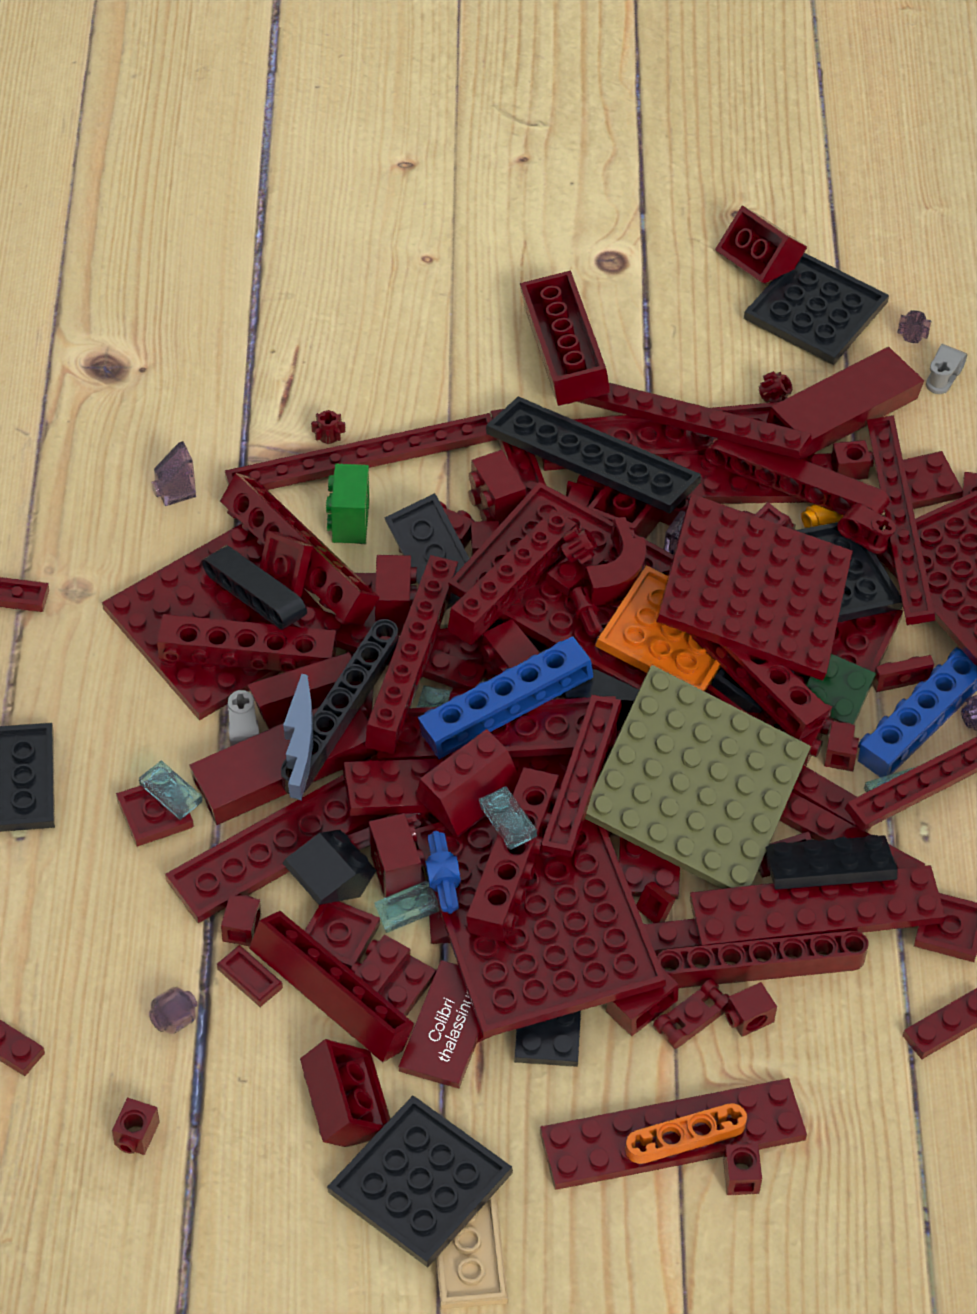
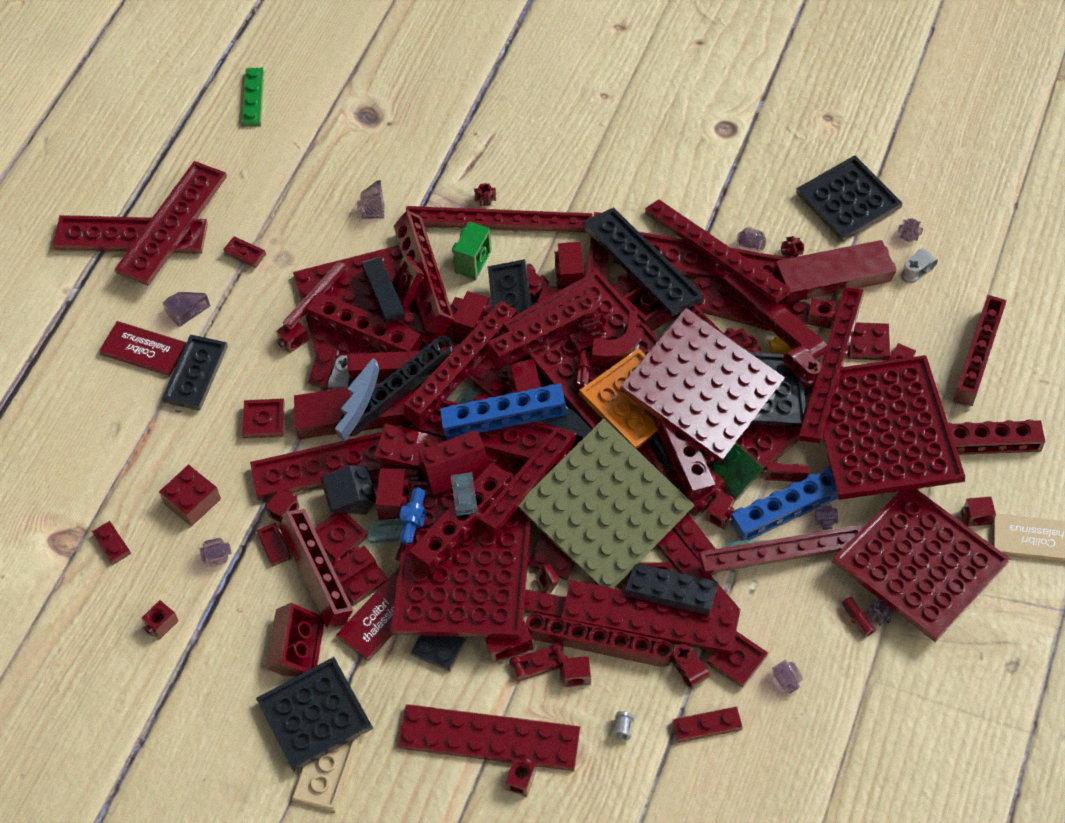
camera: 25 degrees right, 5 degrees up
(99, 944) = (190, 495): none -> dark red brick
(143, 687) = (292, 338): none -> dark red brick
(151, 630) = (324, 284): none -> dark red axle
(170, 789) = (276, 408): clear light blue plate -> none
(209, 715) = (323, 366): none -> dark red plate
(565, 338) = (661, 175): dark red brick -> none
(688, 1138) = (493, 737): orange beam -> none
(717, 391) = (751, 239): none -> head
(760, 246) = (827, 145): dark red slope -> none
(845, 1059) = (623, 725): none -> light grey bush
(896, 956) = (691, 669): none -> dark red piece

